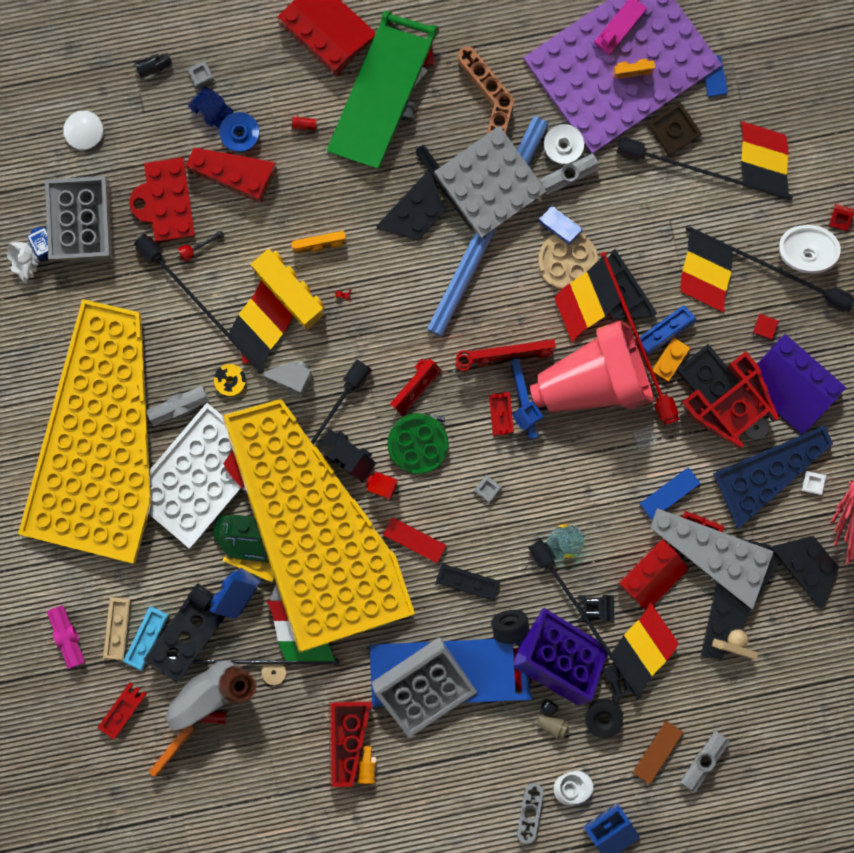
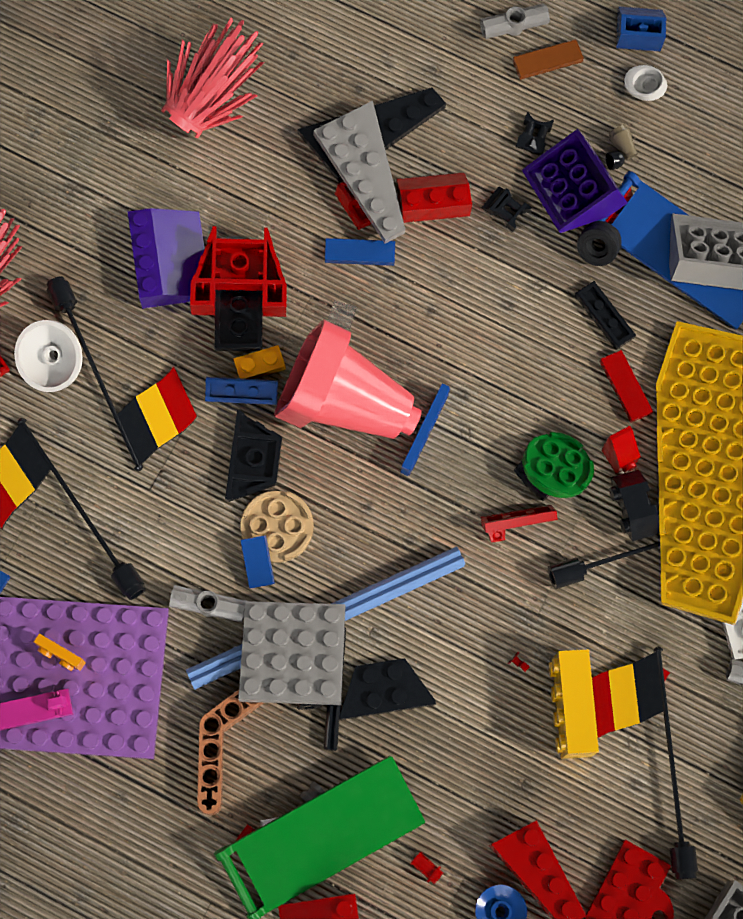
camera: 145 degrees left, 10 degrees down
(187, 252) = (646, 826): hinge -> none
(234, 388) = (701, 658): yellow piece -> none
(291, 377) = (636, 617): light grey slope -> none
(318, 242) = (507, 731): light orange hinge -> none
(485, 356) = (429, 490): red hinge -> none
(487, 489) = (522, 380): light grey tile -> none
(501, 414) = (457, 433): red hinge -> none
(527, 415) = (436, 407): blue slope -> none
(532, 829) = (702, 84): light grey beam -> none
(564, 134) = (182, 626): white dish -> none
(566, 541) = (488, 281): clear light blue hair -> none
(590, 300) = (289, 470): flag -> none
(599, 729) = (582, 106): black tyre -> none
(640, 649) = (493, 144): flag -> none
(674, 129) = (69, 570): dark brown tile -> none
(736, 644) = (412, 84): tan tile -> none
(761, 477) = (263, 202): dark blue wing -> none
(765, 326) = (148, 325): red tile -> none
(809, 566) = (291, 102): black wing -> none
(813, 483) = (225, 165): white tile -> none

